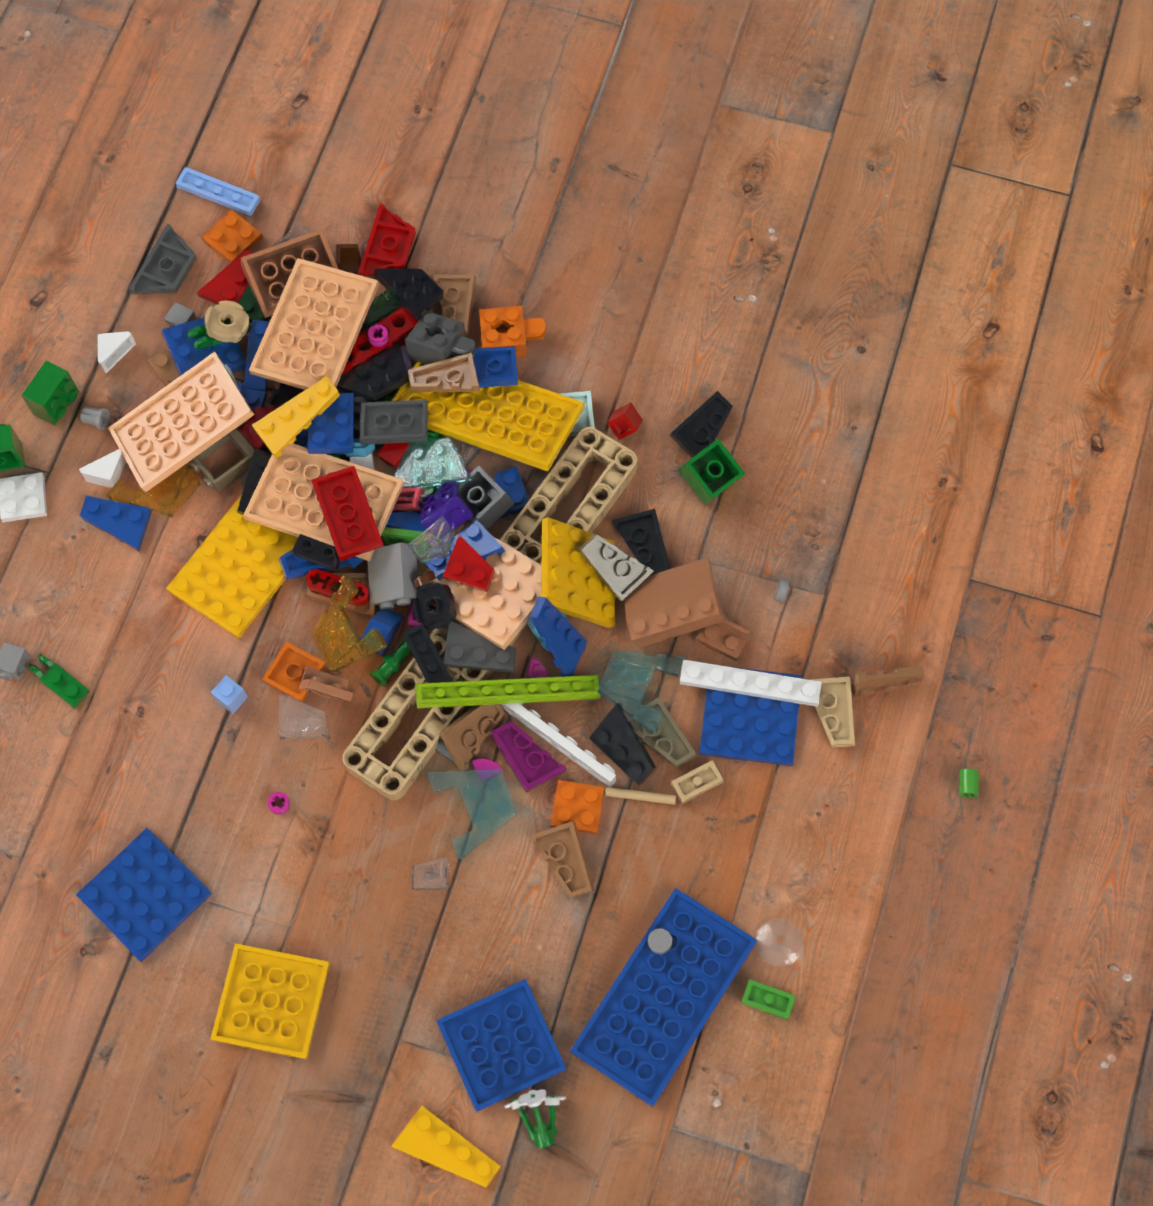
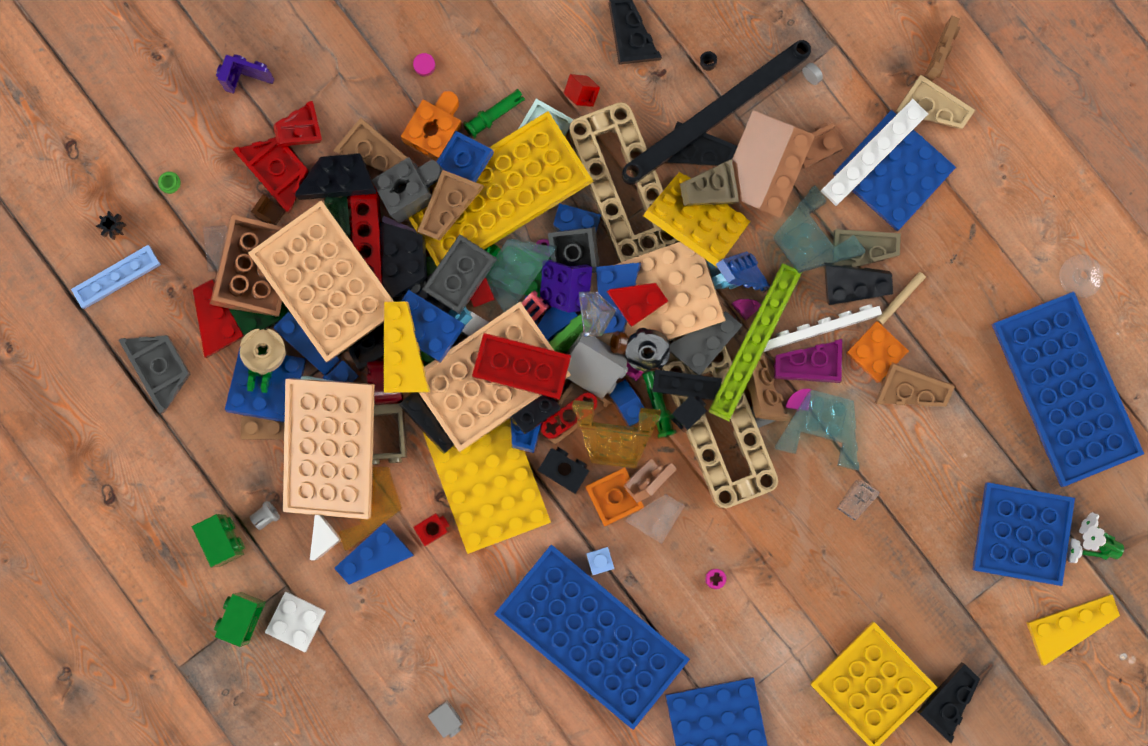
camera: 65 degrees left, 15 degrees up
(60, 682) = (489, 689): green hinge -> none
(113, 348) = (208, 461): white slope -> none
(159, 734) = (592, 637): none -> blue plate
(162, 540) = (421, 529): none -> red brick
(179, 314) = (216, 386): light grey tile -> none
(232, 236) = (169, 293): orange plate -> none
(256, 161) = (107, 221): none -> black gear
(284, 604) = (550, 469): none -> black brick
(300, 1080) = (948, 702): none -> black wing
(321, 179) = (169, 182): none -> bright green plate
(376, 329) = (362, 239): dark pink bush -> none
(401, 670) = (688, 413): none -> black brick
(432, 237) = (299, 127): none -> red wing
(440, 162) = (233, 67): none -> dark purple bracket
(544, 365) = (485, 119): none -> green pin
(556, 294) = (424, 64): none -> dark pink tile
(659, 941) = (1029, 363): light grey tile -> none
(686, 532) = (716, 112): none -> black piece
(697, 782) = (921, 248): tan plate -> none
(711, 471) = (679, 54): green brick -> none
(727, 501) = (707, 58): none -> black hinge
(768, 999) = (1121, 315): bright green plate -> none
(969, 783) = (1060, 50): bright green piece -> none

